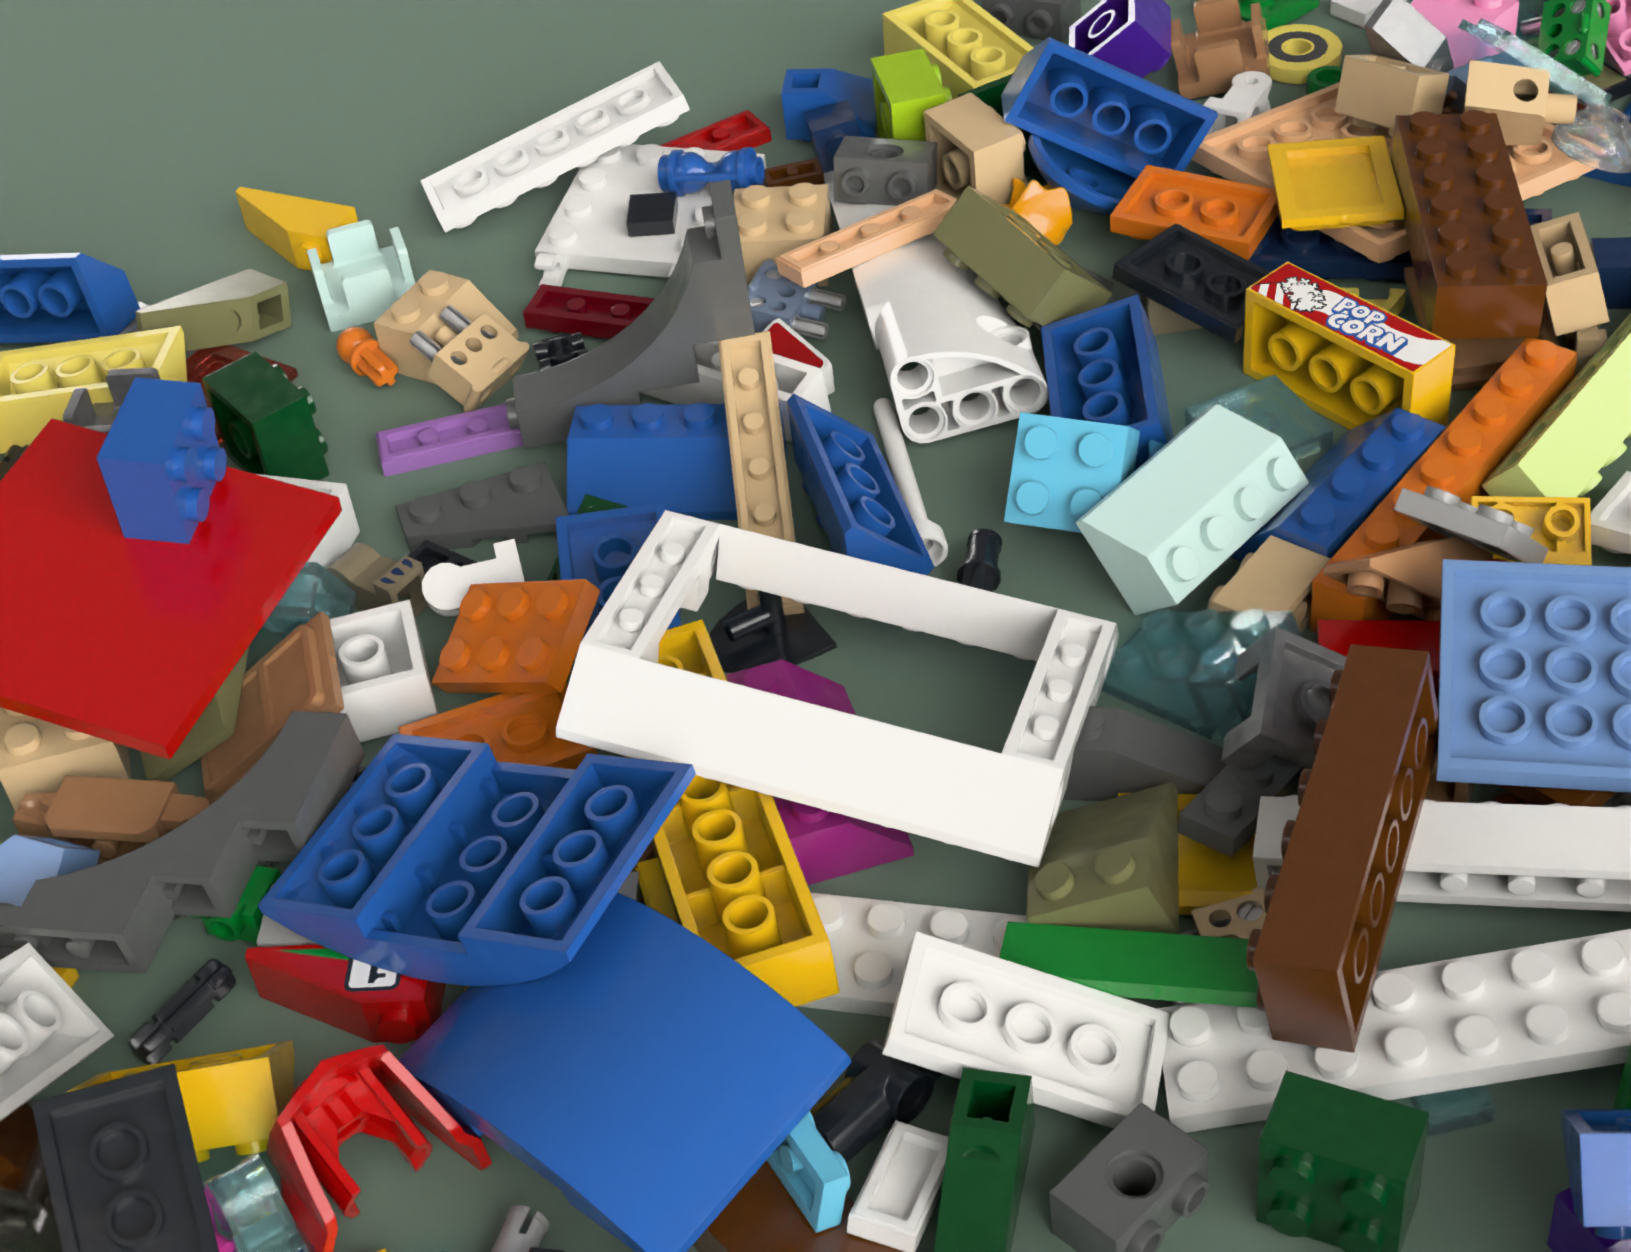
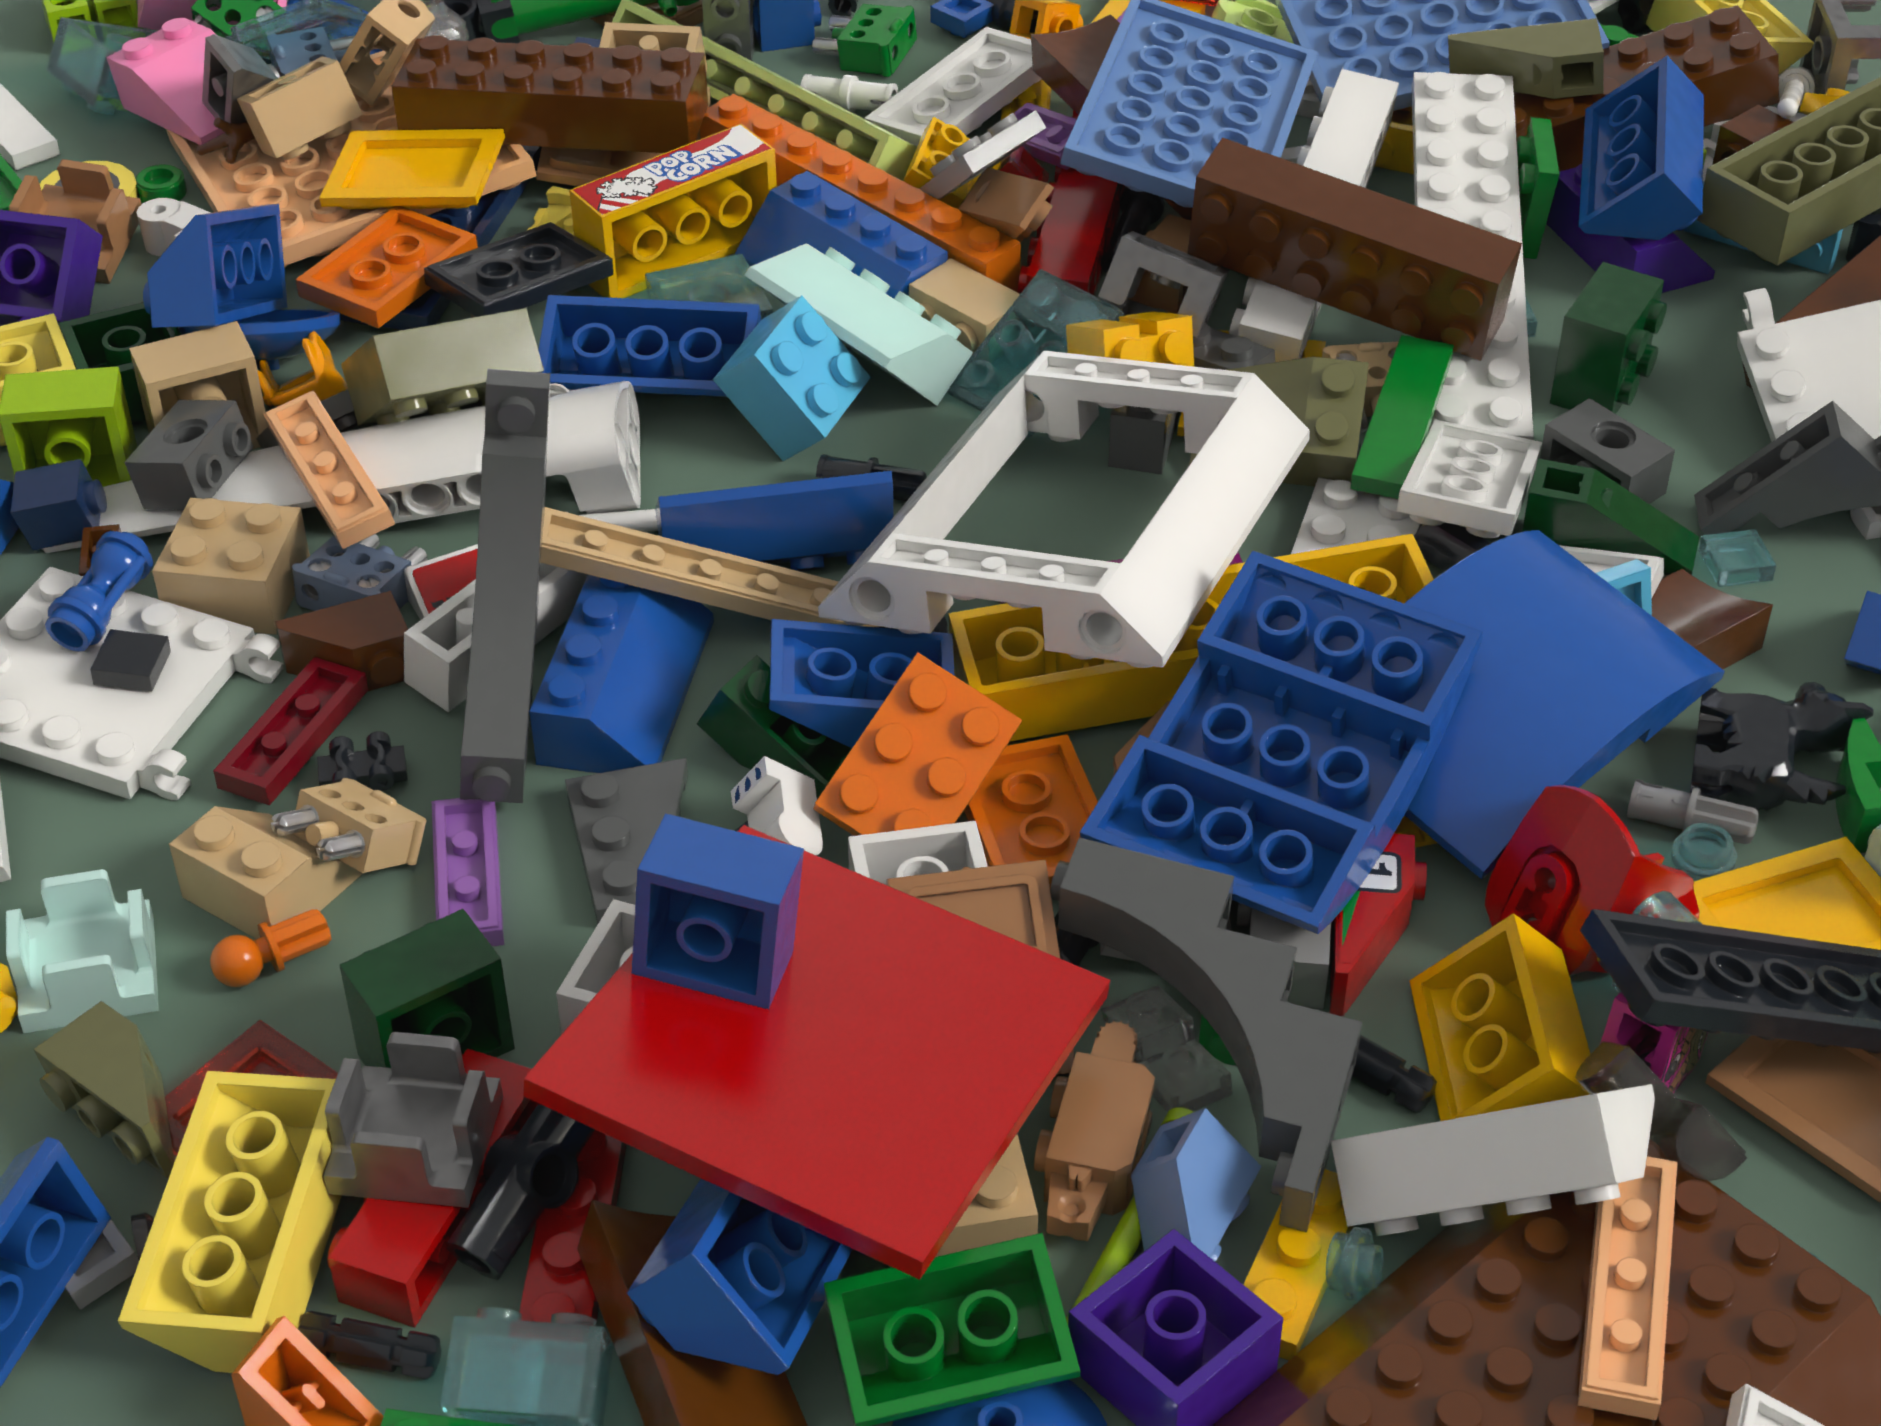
camera: 90 degrees left, 0 degrees up
(1171, 706) = (1138, 337): none -> yellow brick

